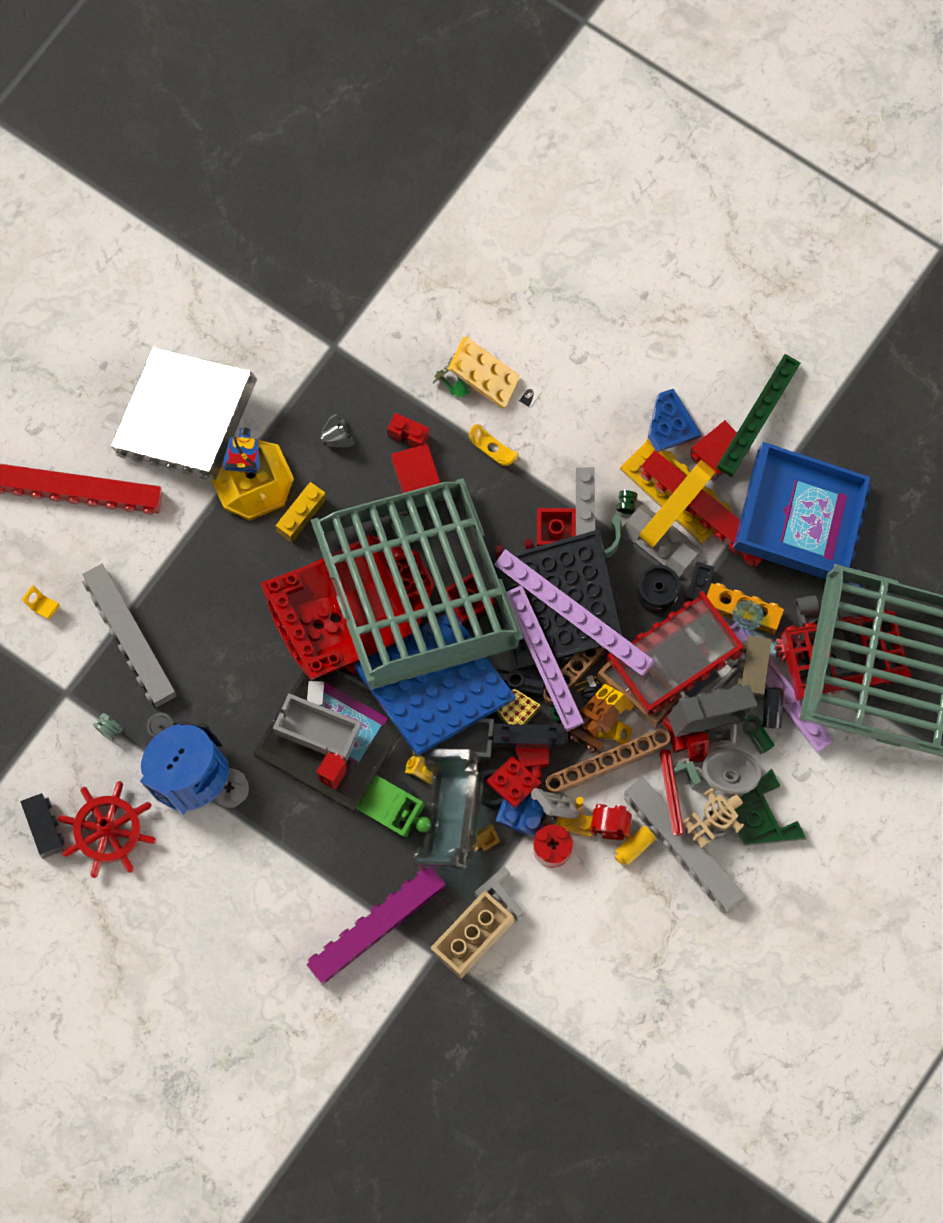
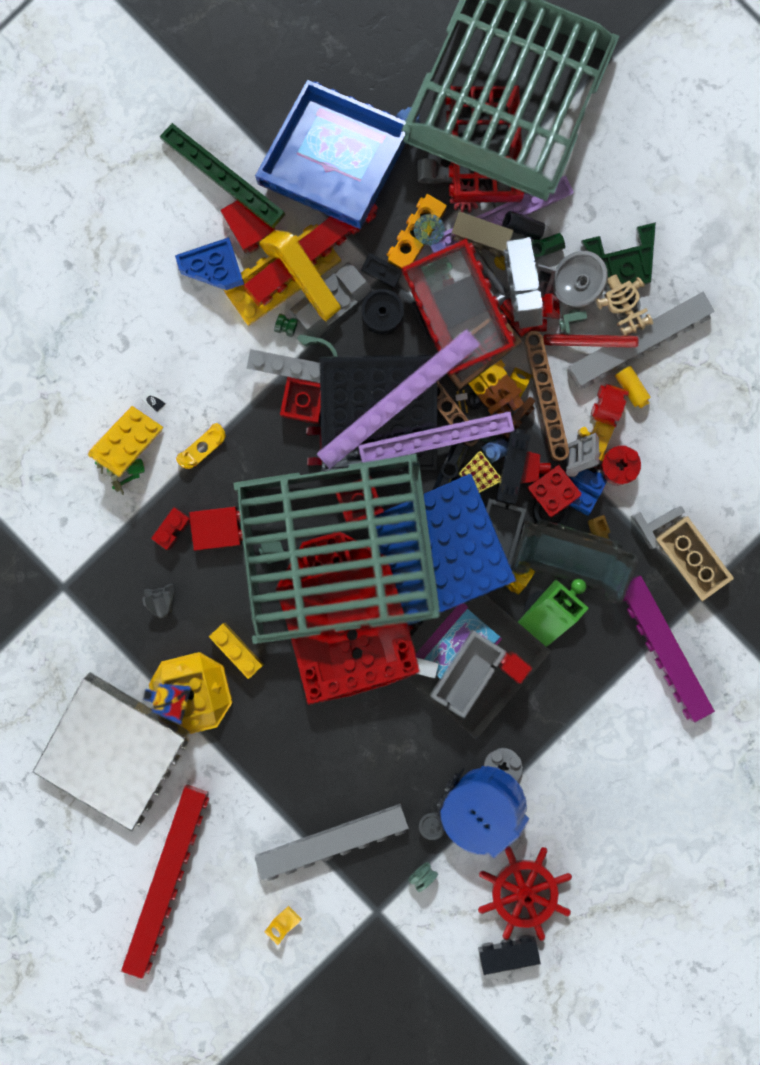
camera: 85 degrees left, 15 degrees up
(543, 717) = (495, 450): none -> medium blue plate

